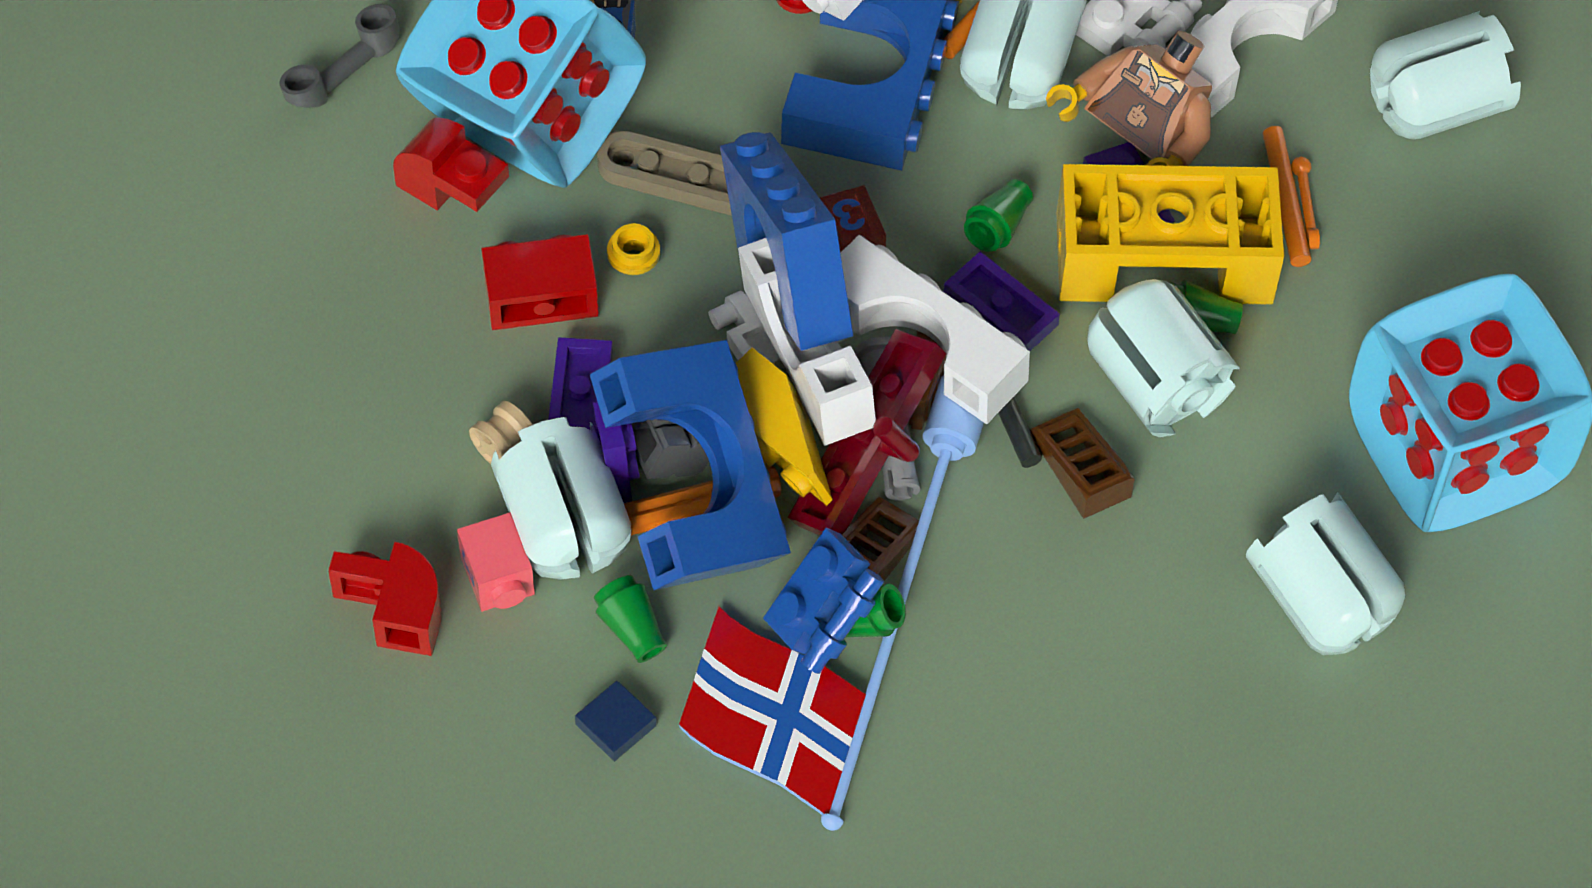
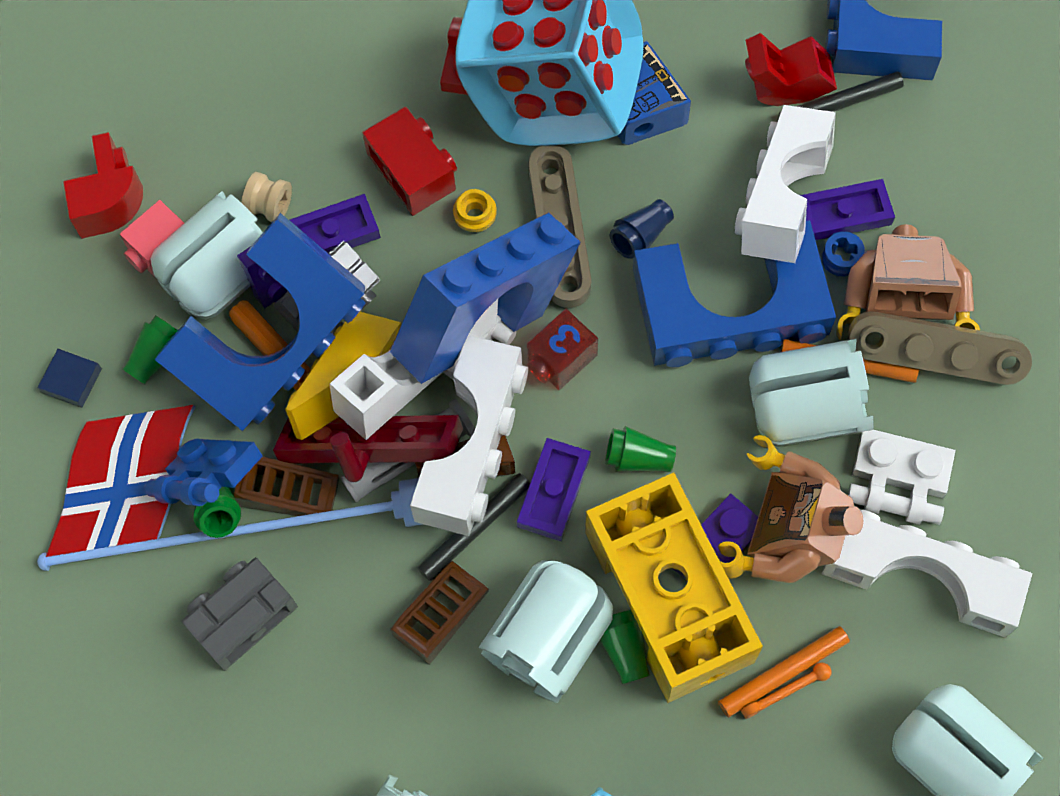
camera: 70 degrees right, 10 degrees up
(746, 106) = (640, 228): none -> dark blue cone
(995, 638) = (238, 612): none -> dark grey brick

